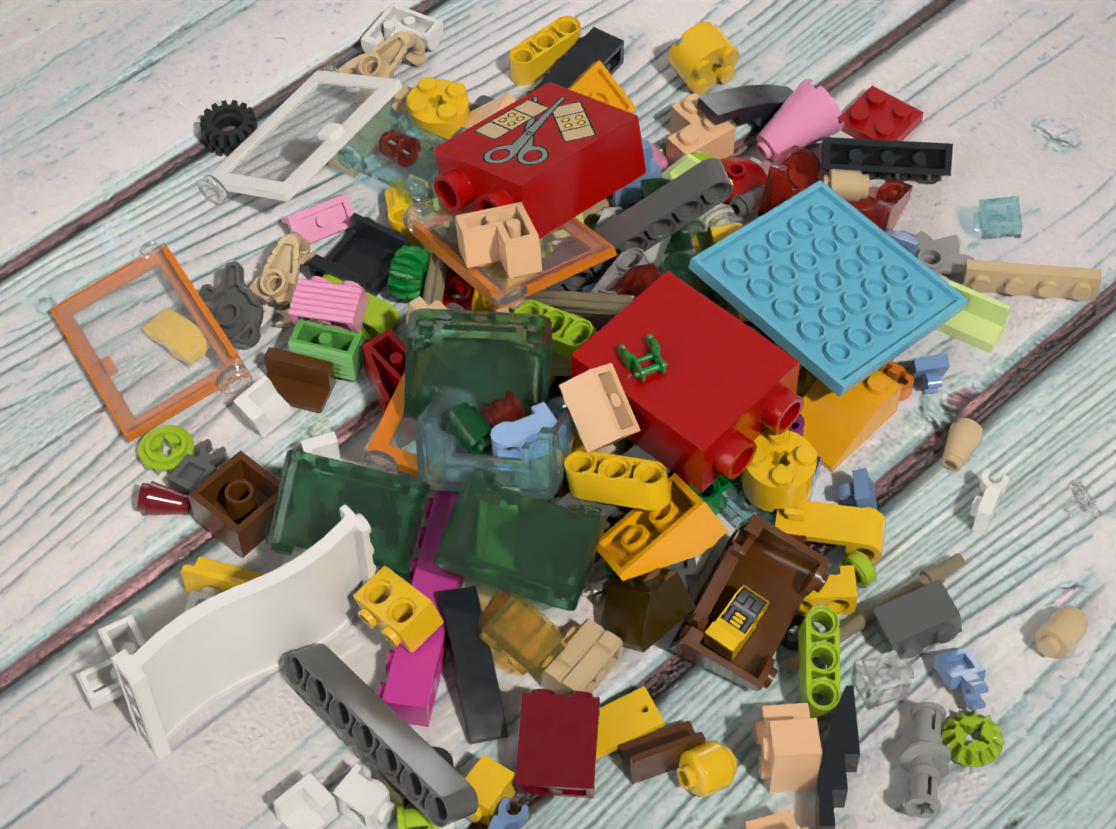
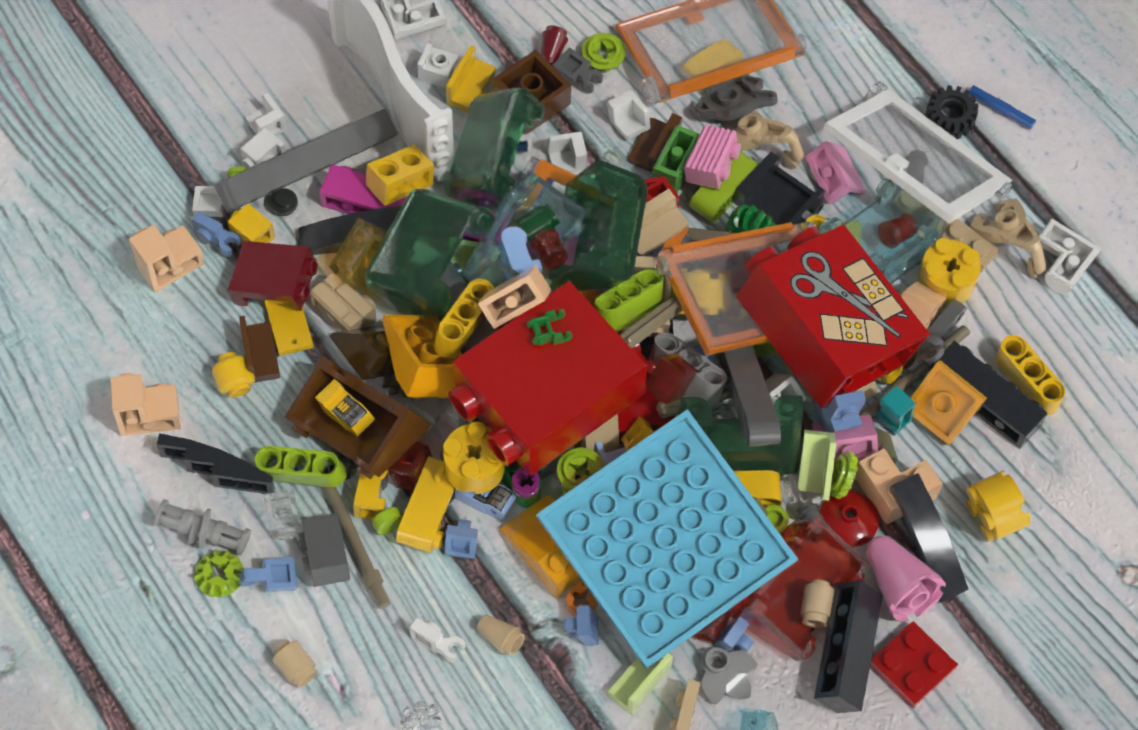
camera: 95 degrees right, 10 degrees up
(215, 92) = (1002, 107): none -> blue piece
(502, 236) = (722, 260): light nougat brick -> none
(788, 747) = (232, 430): light nougat brick -> none

